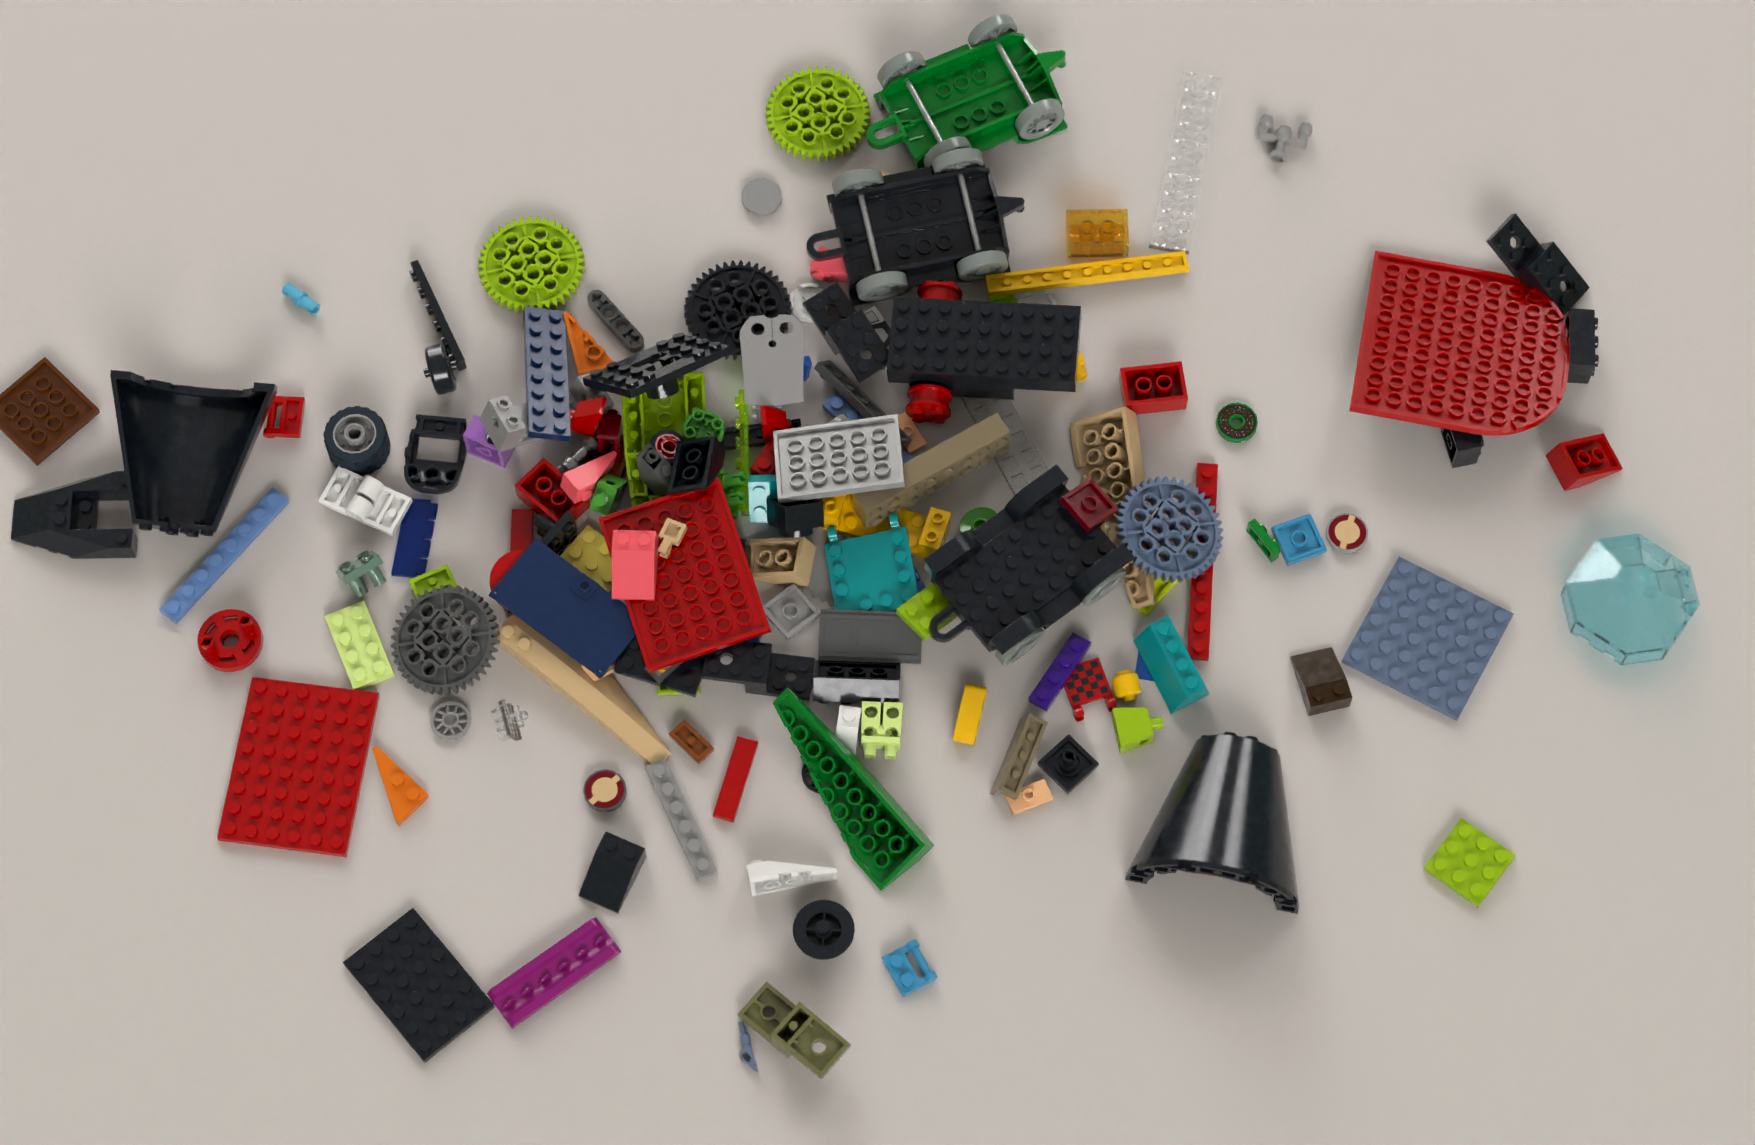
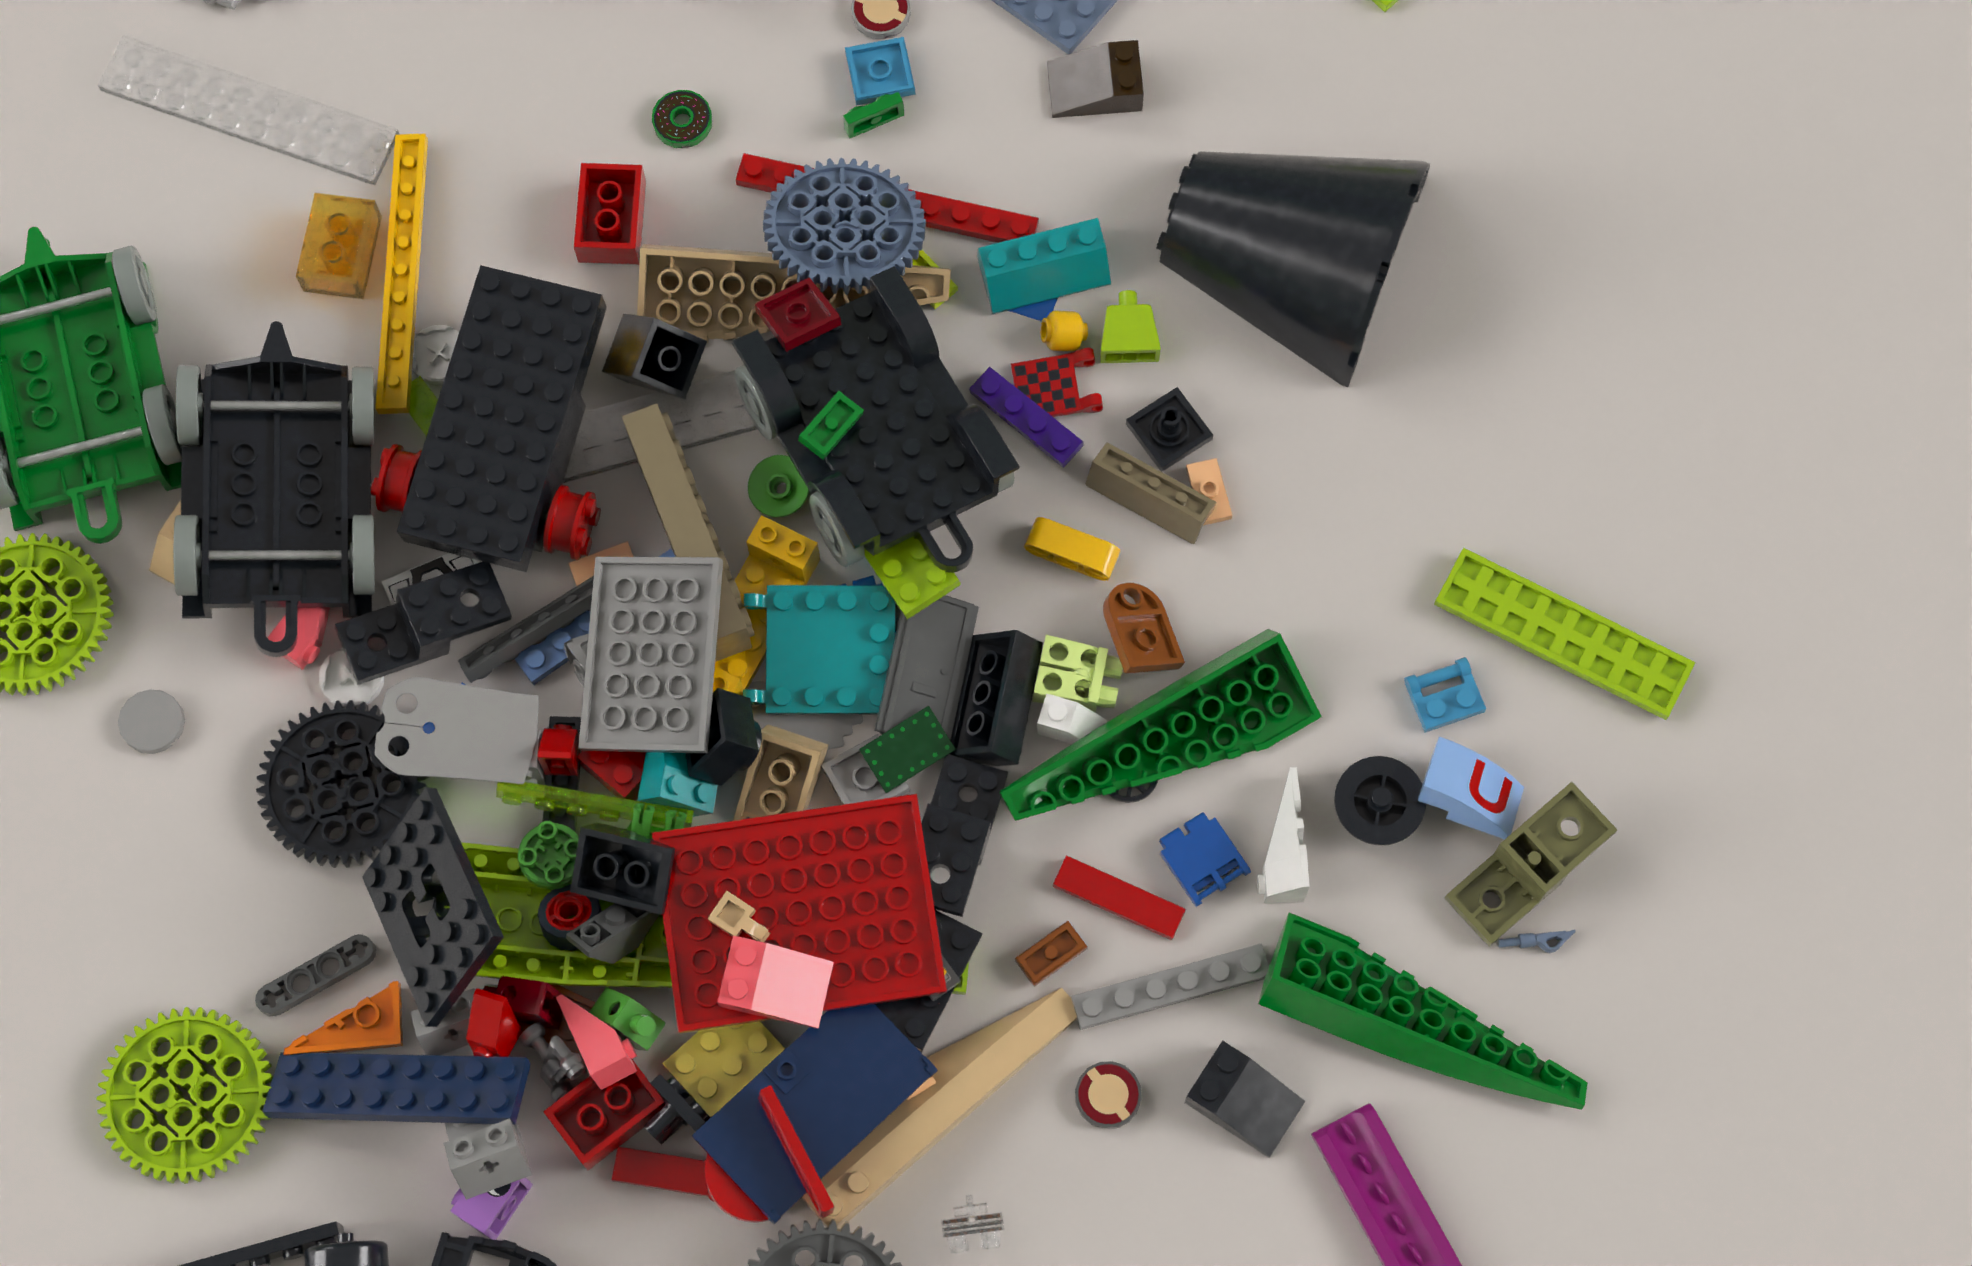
camera: 80 degrees left, 5 degrees up
(531, 596) = (796, 1152): none -> red tile
(689, 935) = (1355, 996): none -> green wedge
(769, 825) = (1202, 857): none -> blue plate
(811, 631) = (907, 749): none -> dark green sticker
(841, 987) = (1471, 789): none -> light blue slope
(916, 763) = (1141, 630): none -> dark orange plate
(965, 1041) = (1565, 633): none -> lime plate
(1010, 535) = (830, 425): none -> green plate
(1052, 431) = (654, 355): none -> black slope

